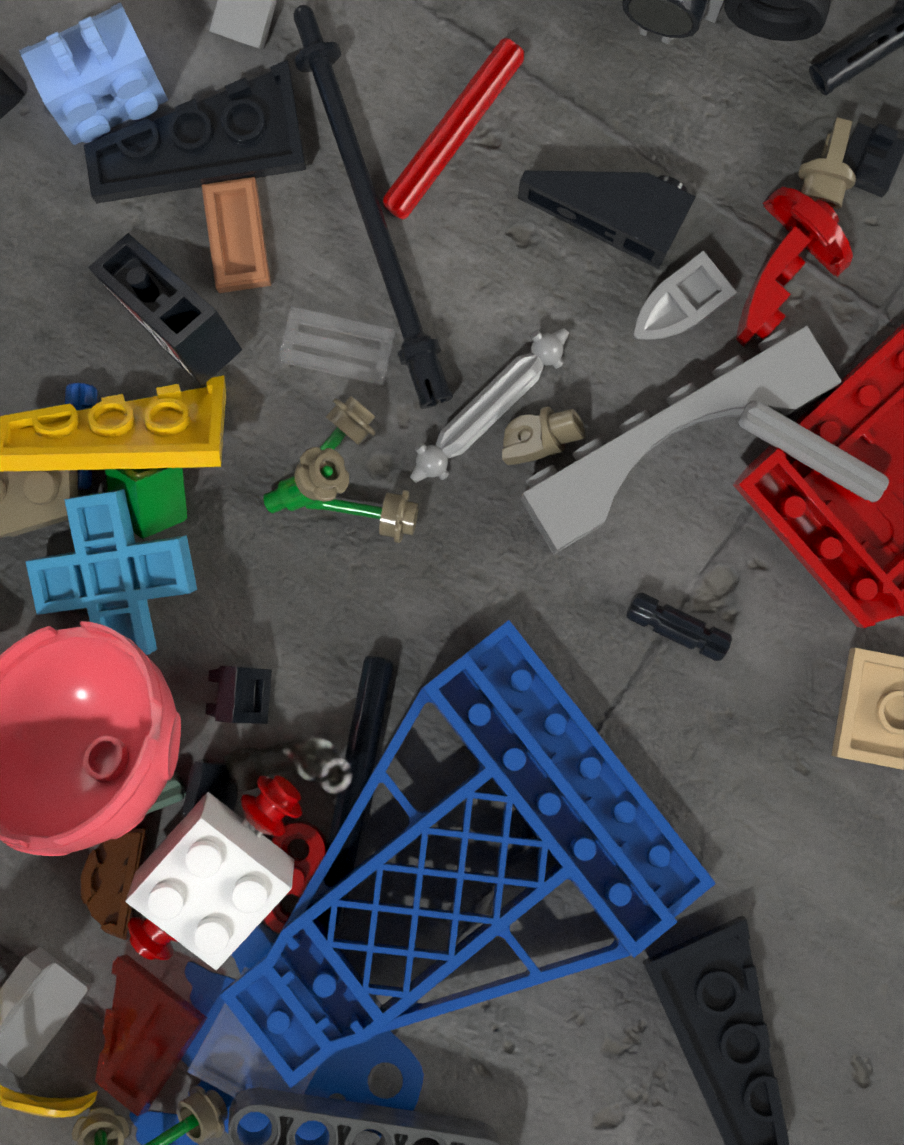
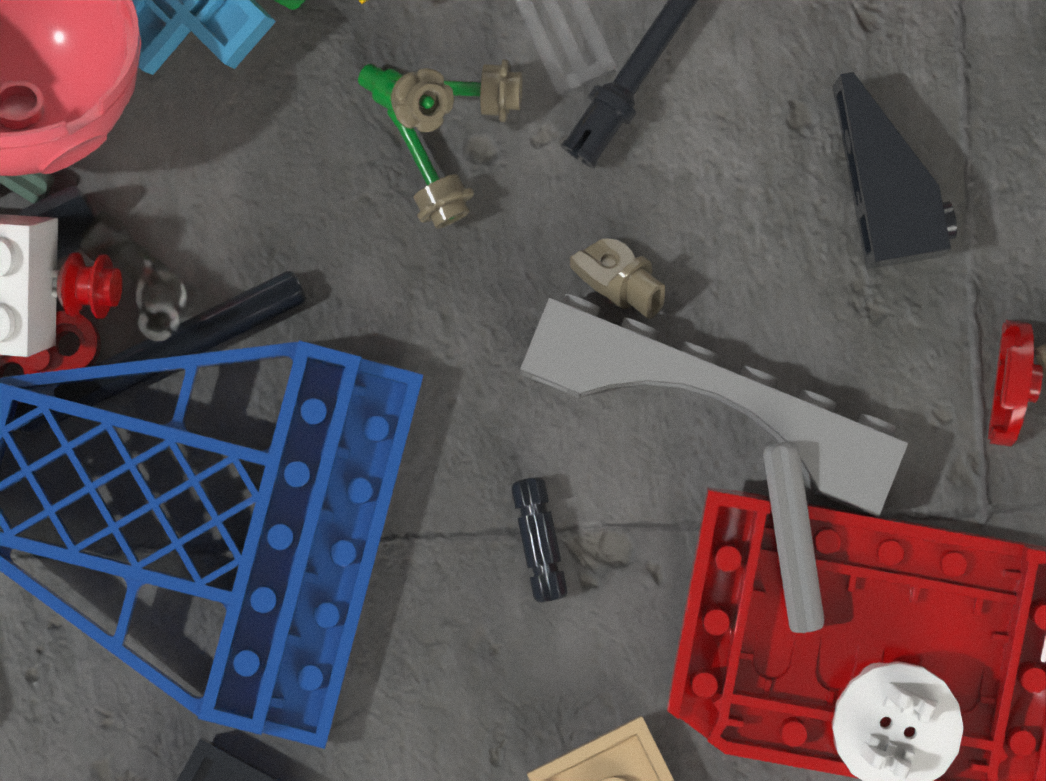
camera: 45 degrees right, 0 degrees up
(241, 695) = (169, 183): black tile -> none
(489, 405) = (613, 207): light grey wheel -> none
(684, 300) = (849, 313): light grey plate -> none
(766, 296) = (908, 389): red slope -> none

